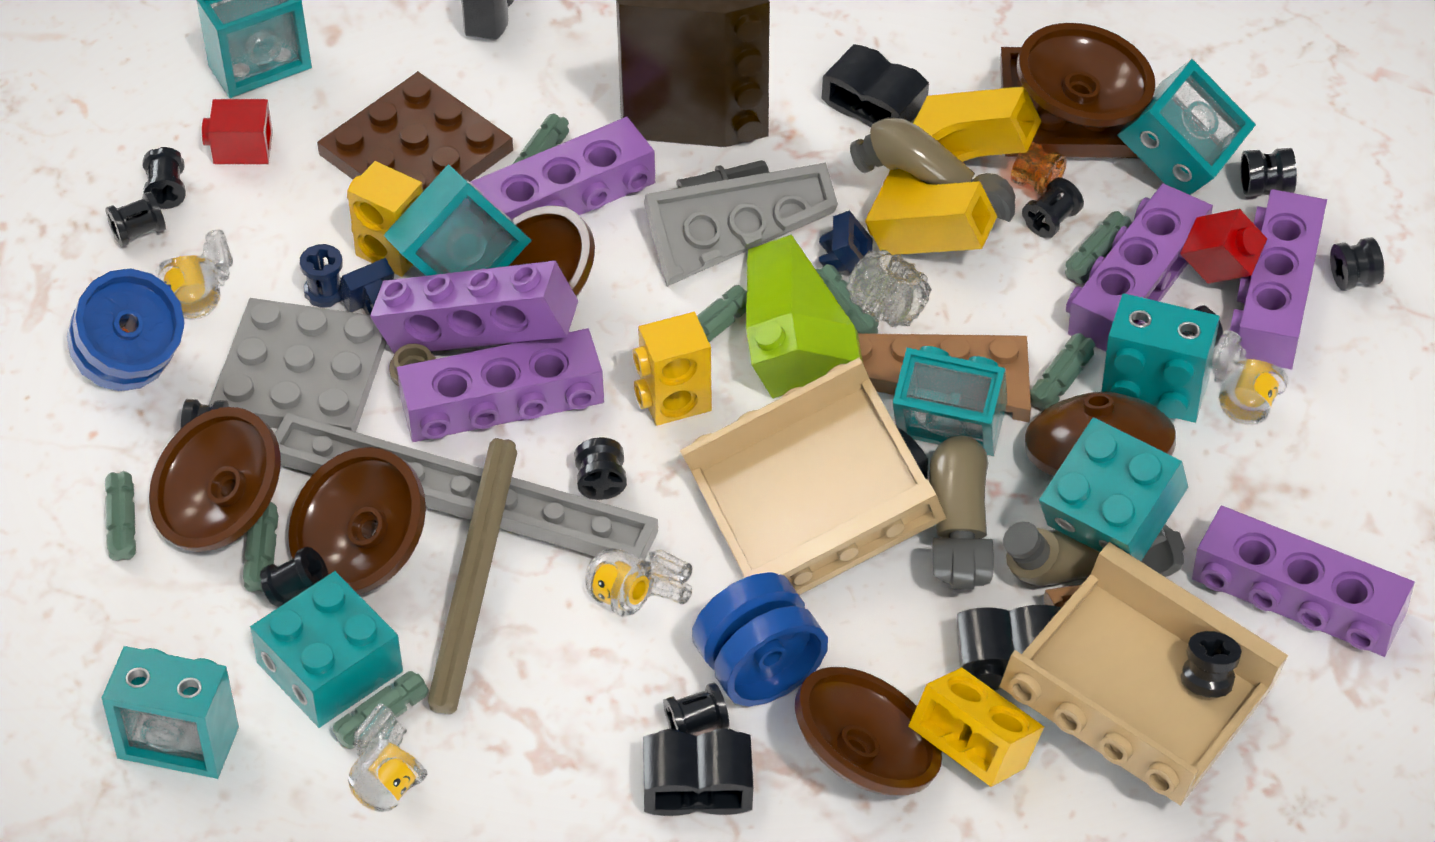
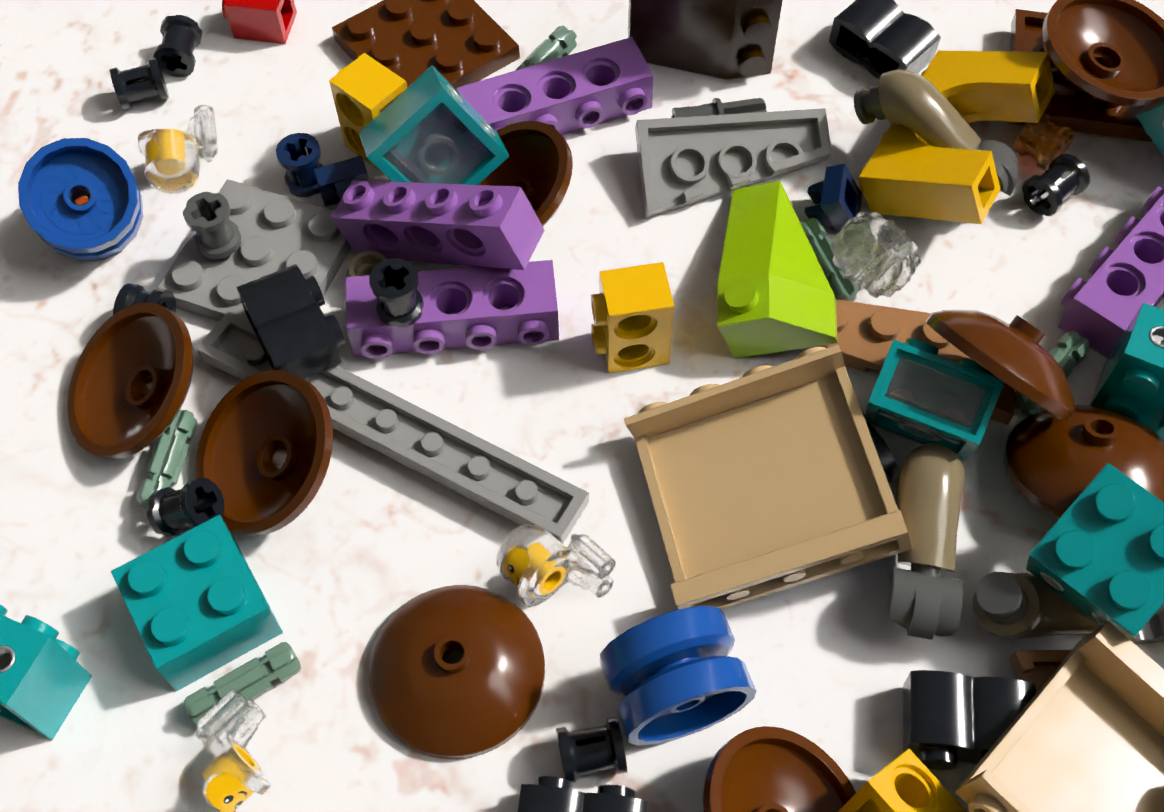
camera: 10 degrees right, 10 degrees up
(120, 516) = (35, 402): sand green axle -> none
(257, 330) = (209, 217): none -> dark grey bush
(354, 409) = (290, 322): none -> black brick
(453, 363) = (396, 286): none -> black bush
(472, 577) = (372, 539): dark tan axle -> none
(570, 696) = (462, 705): none -> reddish brown dish
(600, 468) = (538, 420): black wheel -> none
(722, 312) = (694, 257): sand green axle -> none
(1011, 347) = (1010, 354): none -> reddish brown dish
(1096, 245) = (1098, 234): sand green axle -> none

